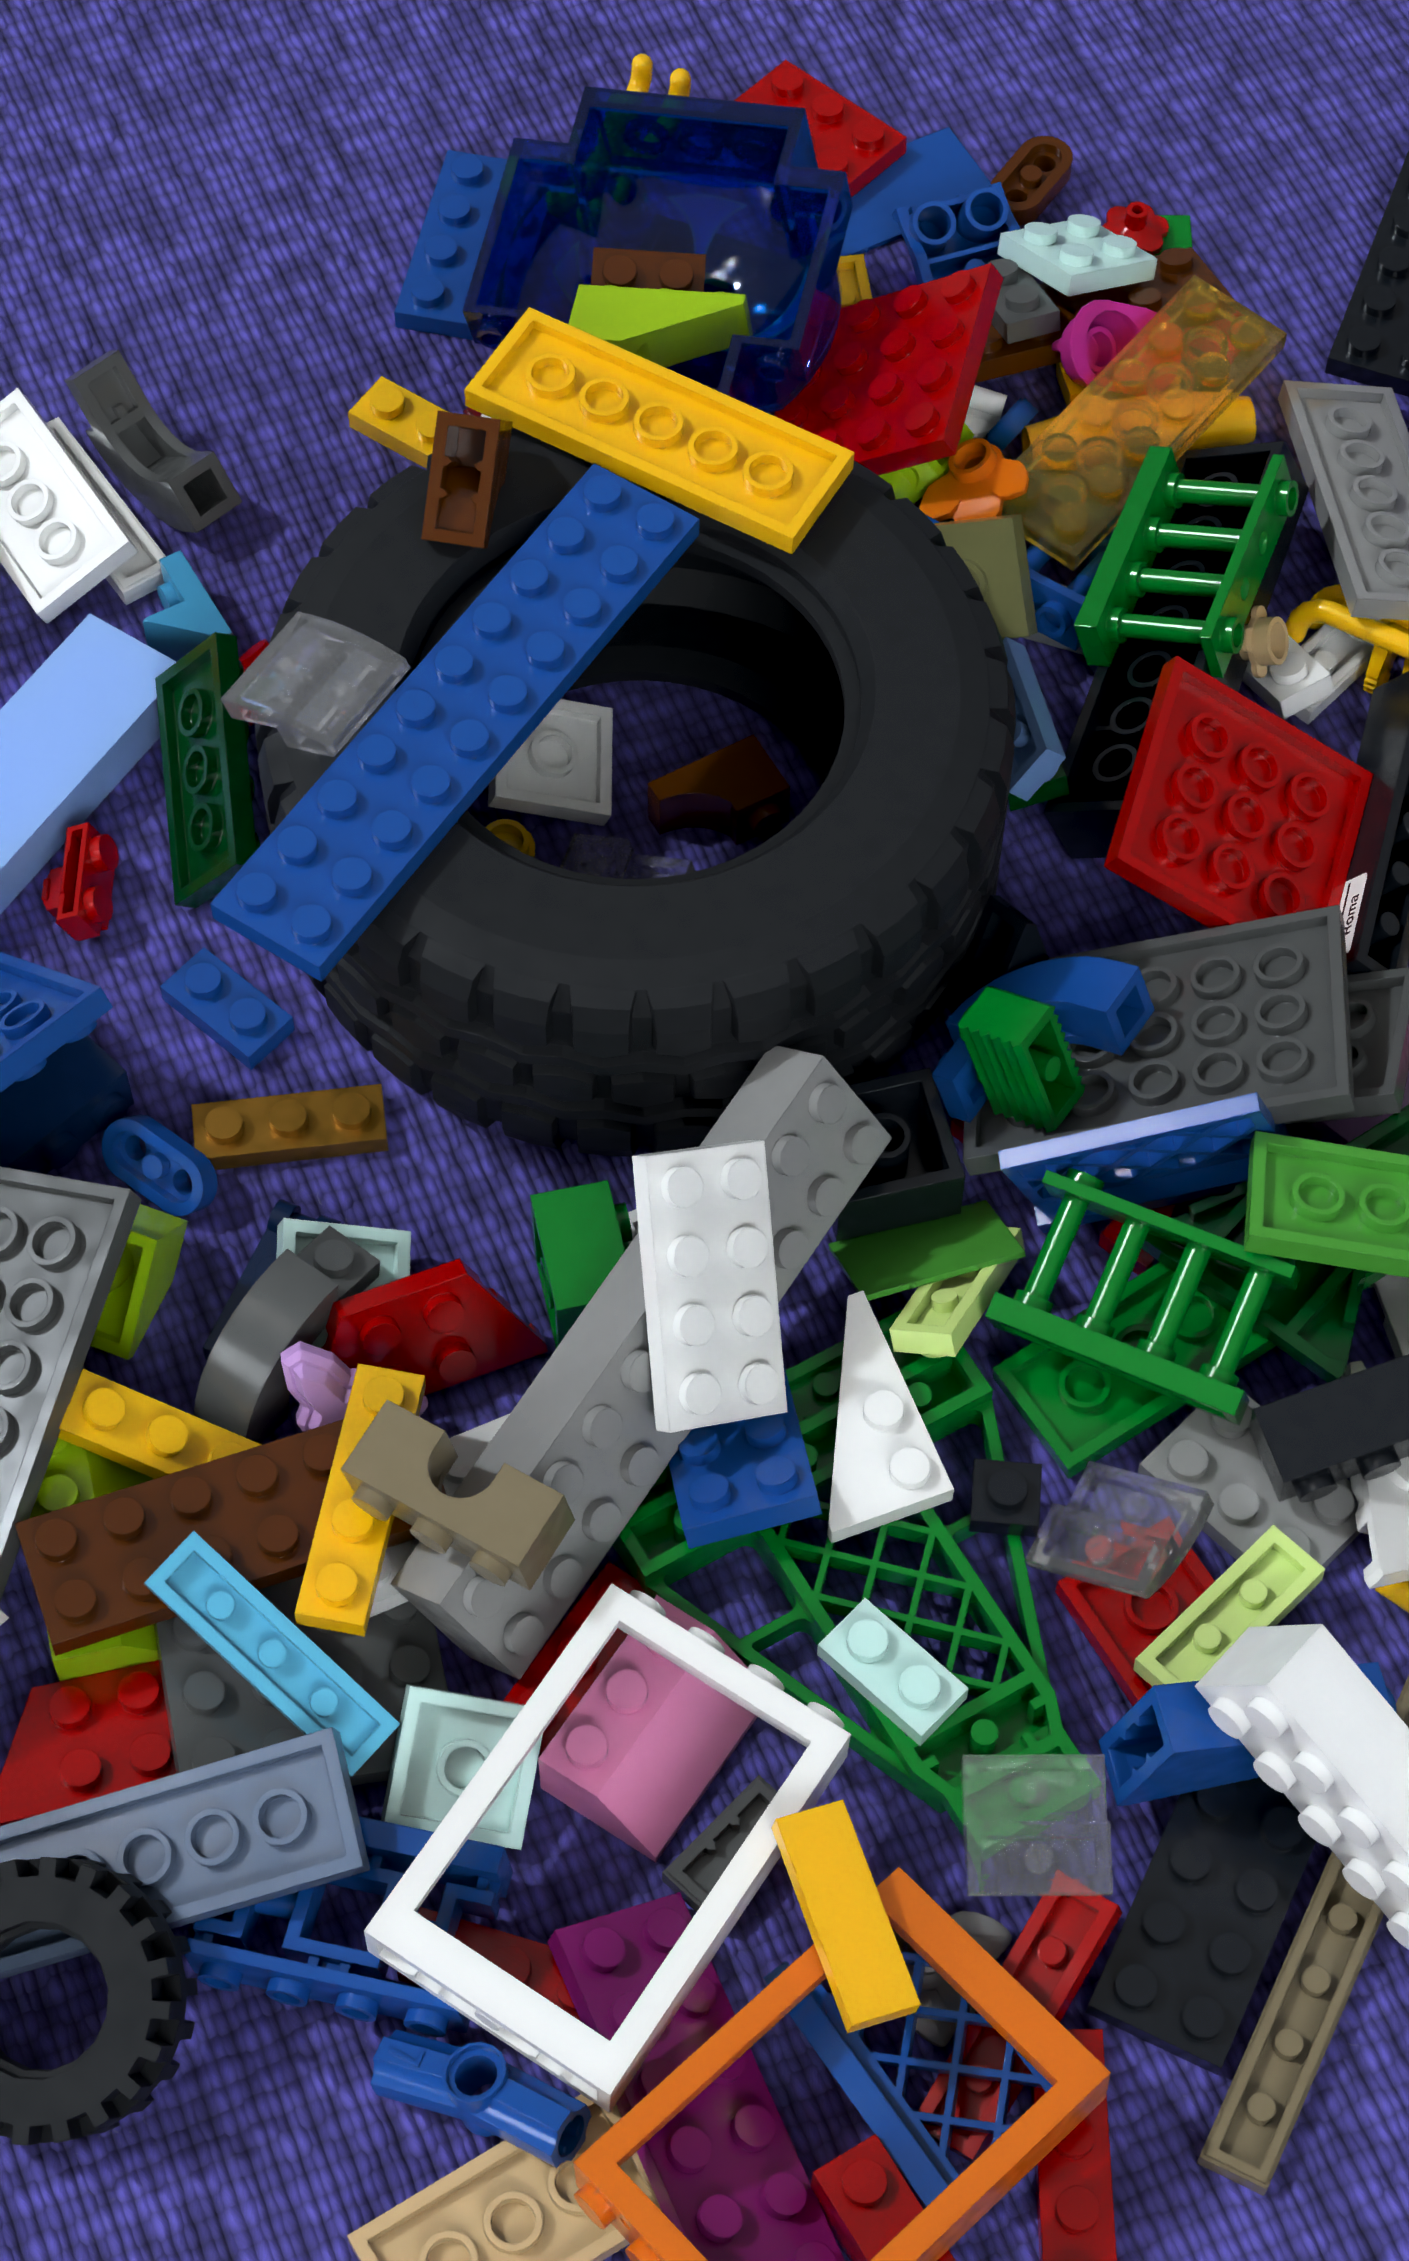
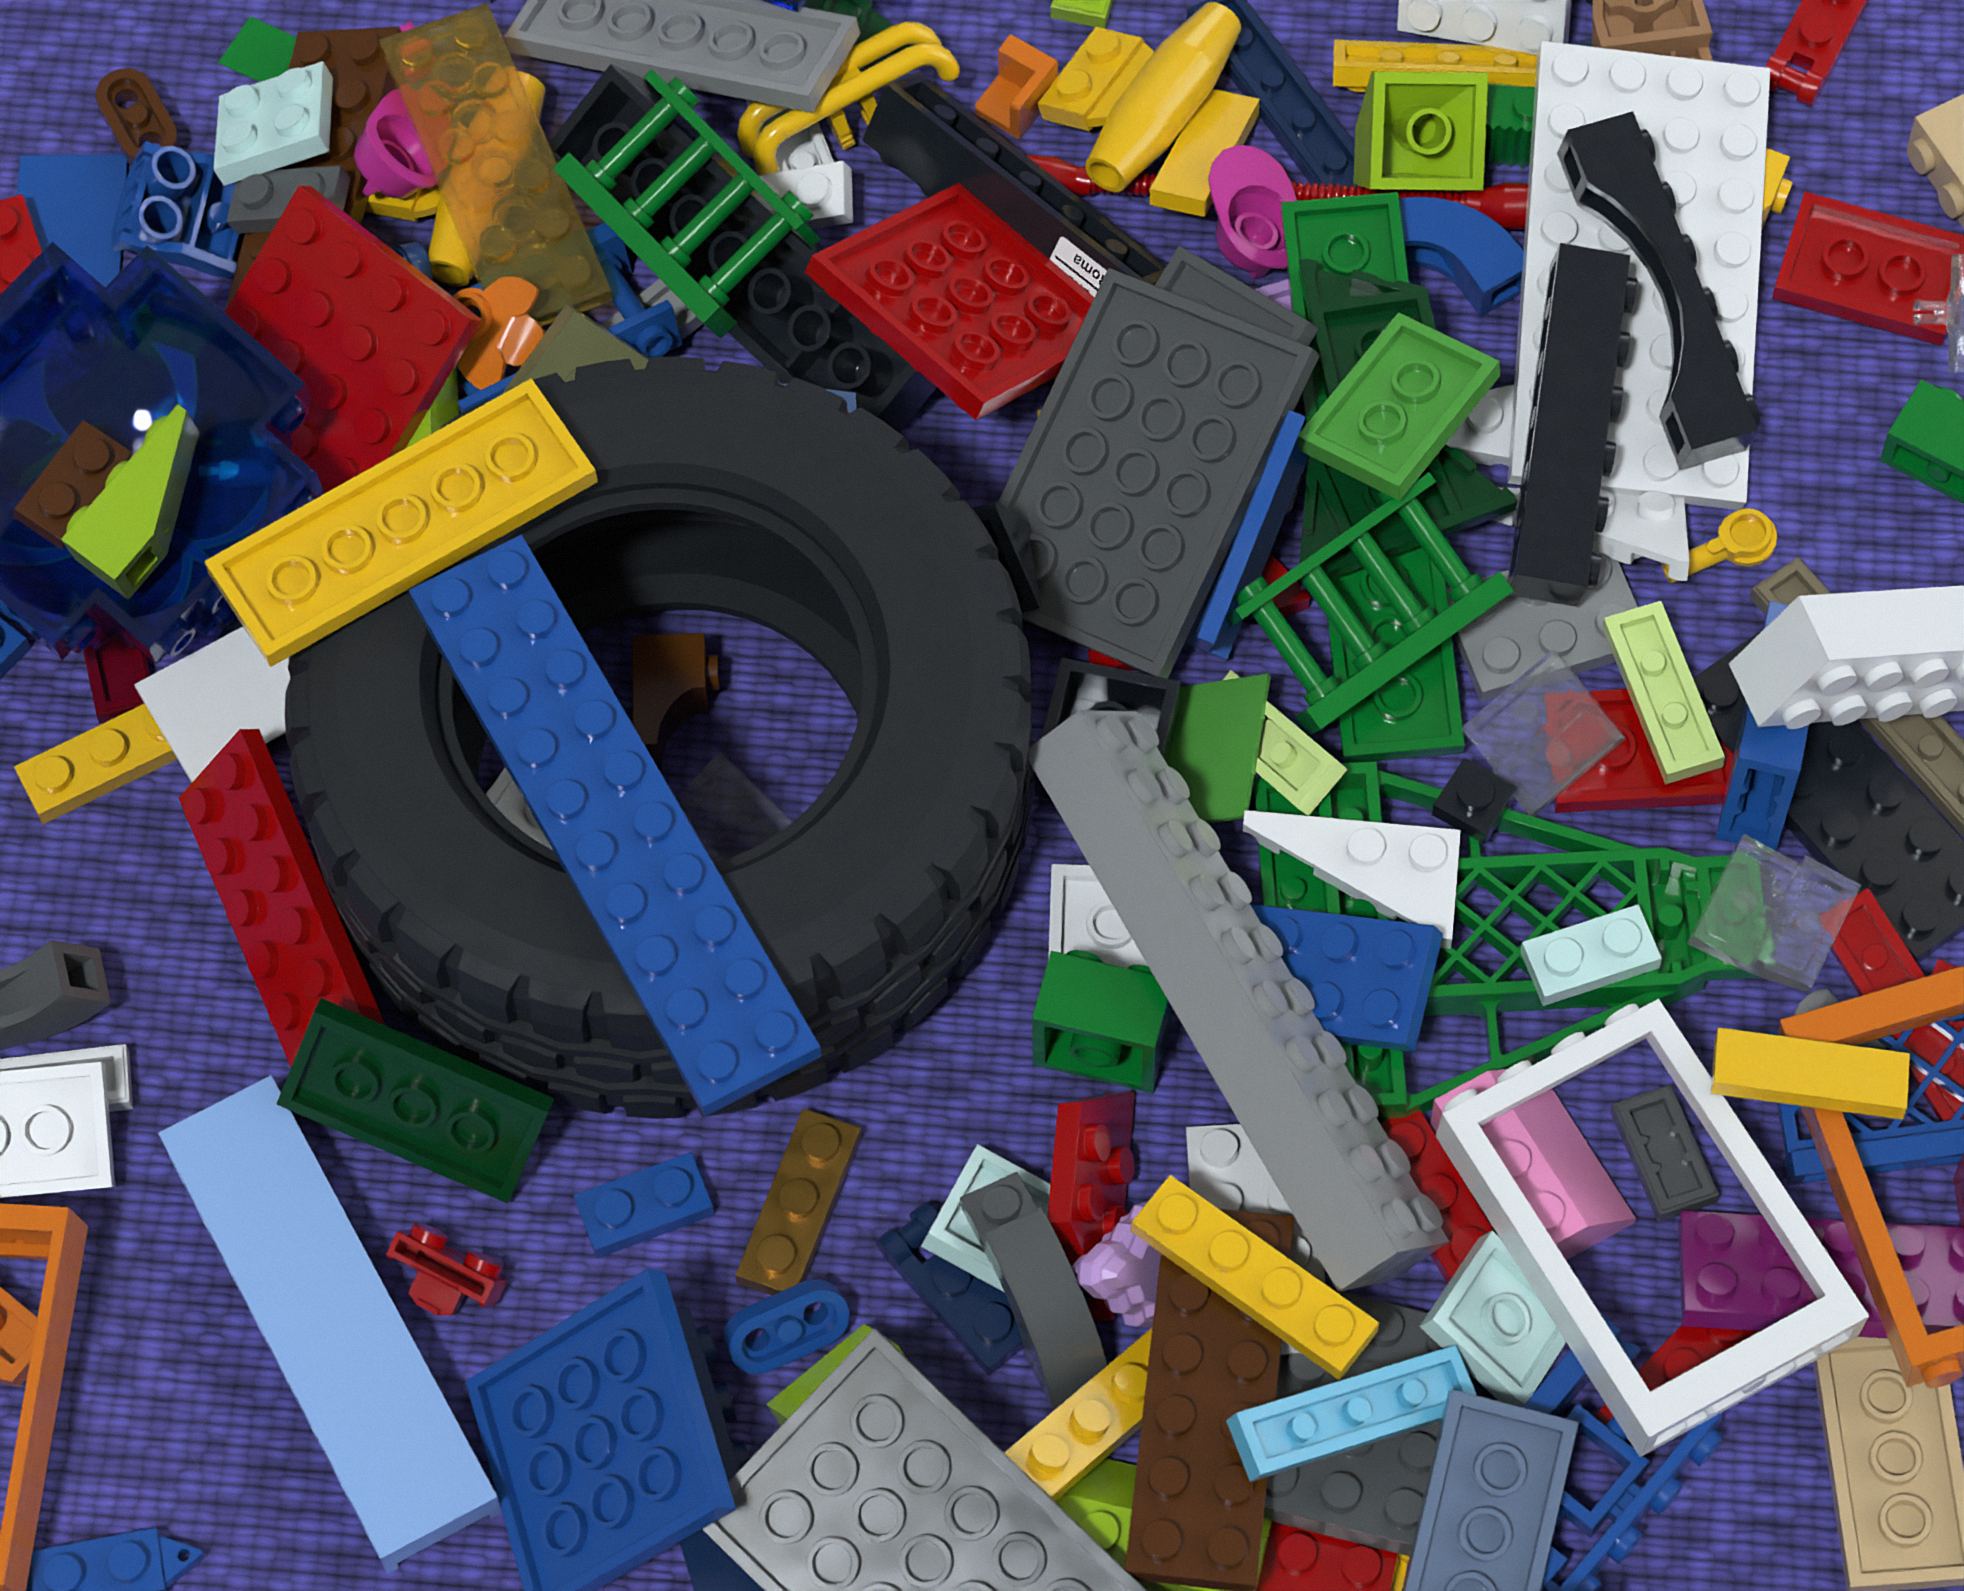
camera: 60 degrees left, 5 degrees up
(187, 613) = (215, 1048): dark azure slope -> none
(315, 683) = (513, 922): clear slope -> none
(465, 478) = (367, 697): reddish brown arch -> none
(504, 1529) = (1281, 1221): dark tan arch -> none
(514, 2108) = (1755, 1461): blue piece -> none
(709, 1285) = (1233, 903): white plate -> none
(1021, 1058) = (1117, 576): green brick -> none
(1097, 1003) = (1056, 543): blue arch -> none
(1140, 224) = (240, 64): red plant -> none
(1264, 641) = (786, 180): tan plate -> none

